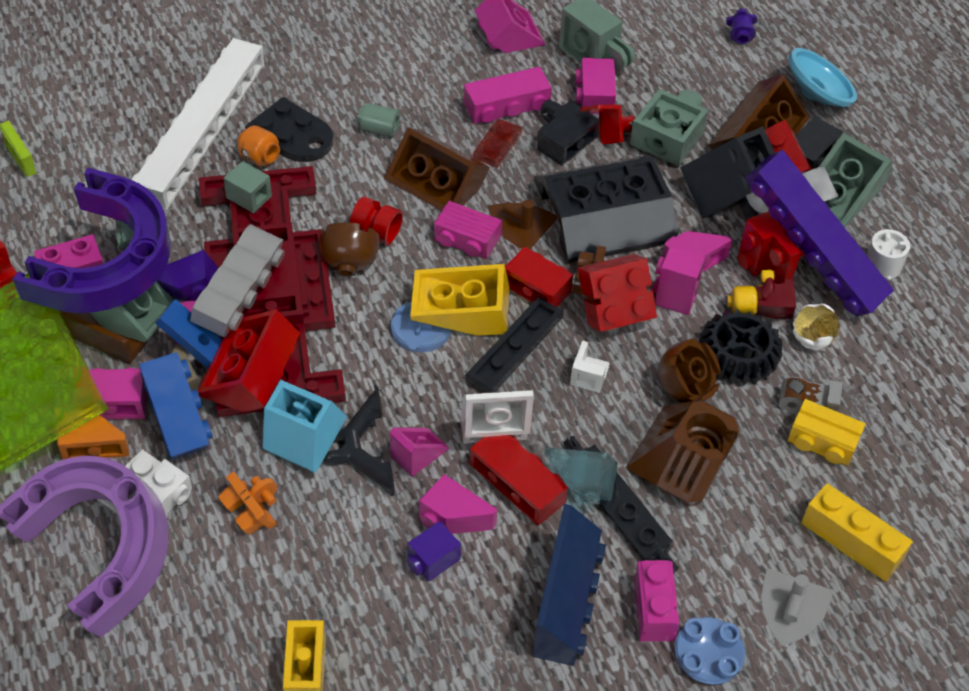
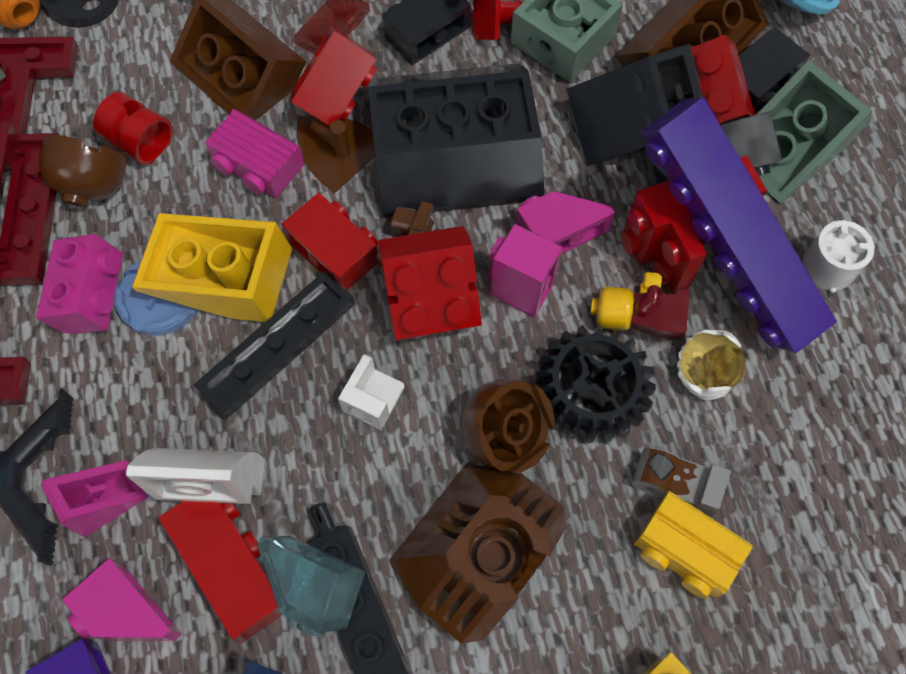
camera: 10 degrees right, 15 degrees up
(370, 320) = (80, 284): none -> dark pink brick
(517, 172) = (334, 77): none -> red brick

